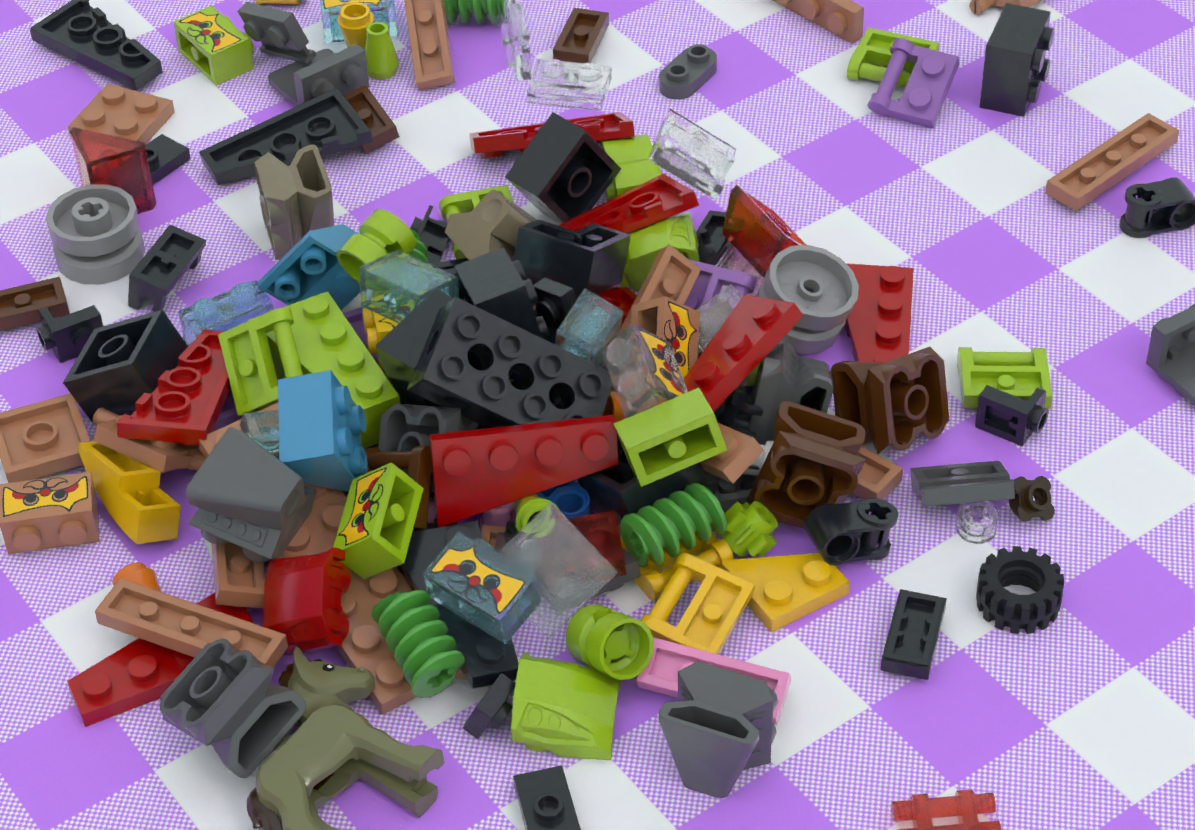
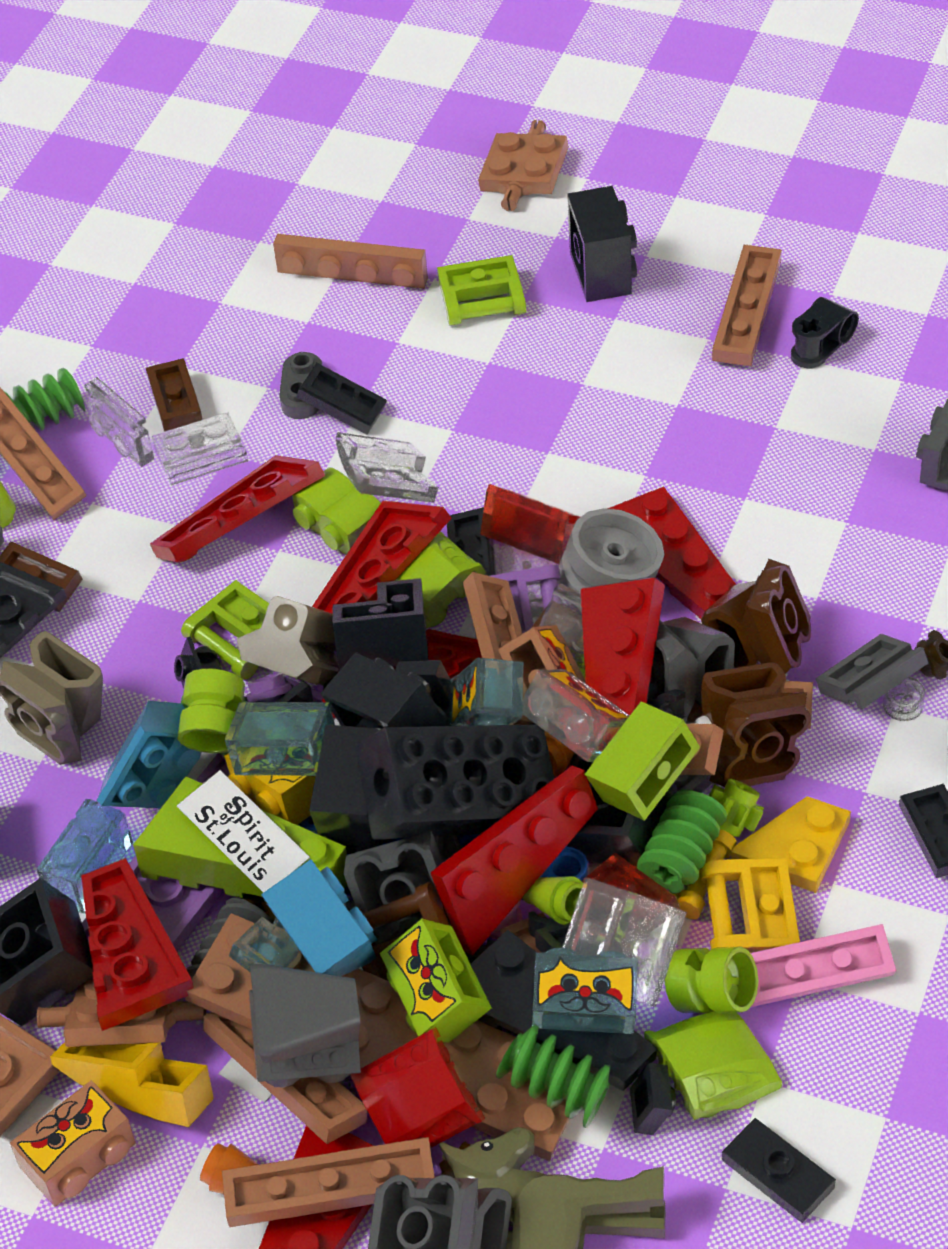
camera: 30 degrees left, 5 degrees up
(251, 362) = (174, 891): lime plate -> none
(331, 340) = (243, 831): none -> white sticker
(443, 258) = (268, 688): none -> medium lavender plate
(562, 170) = (295, 543): black brick -> none
(706, 92) = (341, 398): none -> black plate
(718, 727) = (873, 1007): dark grey piece -> none
(848, 531) = (820, 762): black piece -> none
(925, 88) = (536, 304): medium lavender plate -> none
(1008, 371) = (828, 561): lime plate -> none
(1011, 416) = (857, 587): black bracket -> none

